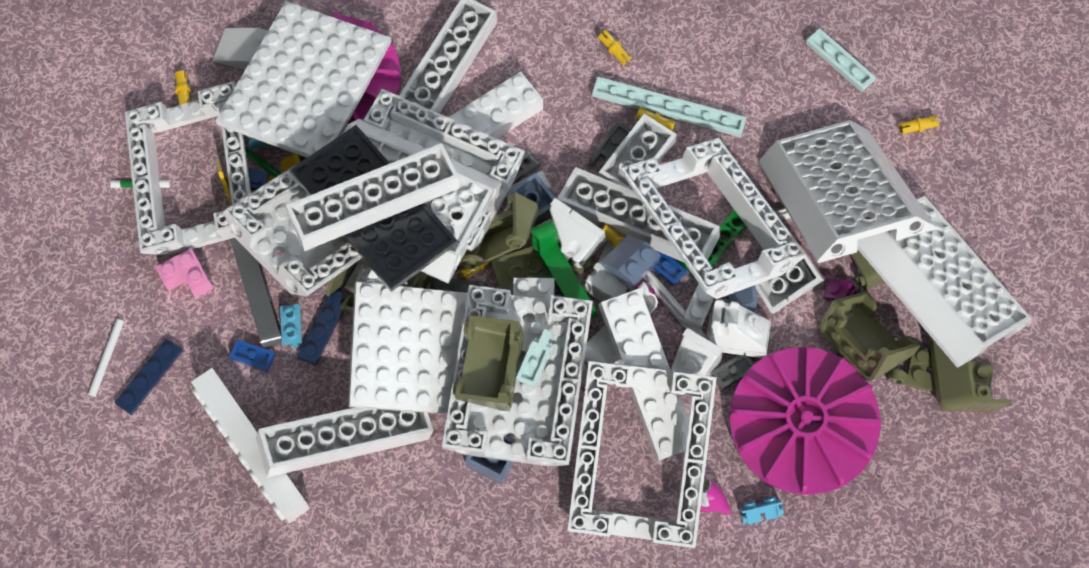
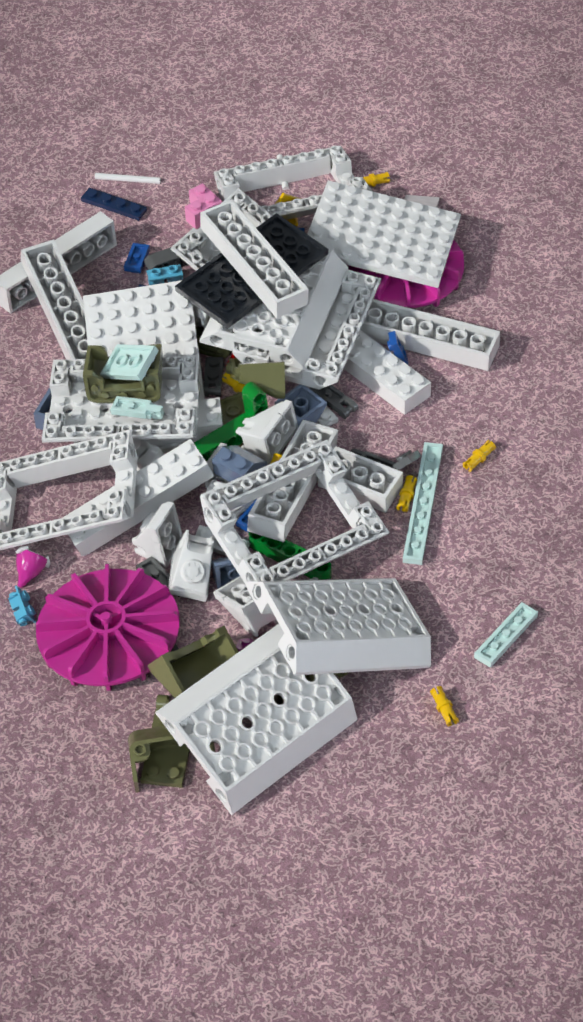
camera: 85 degrees right, 20 degrees down
(464, 97) = (396, 346): none -> blue plate
(490, 352) = (129, 362): none -> light aqua plate
(622, 110) = (406, 459): none -> dark grey plate

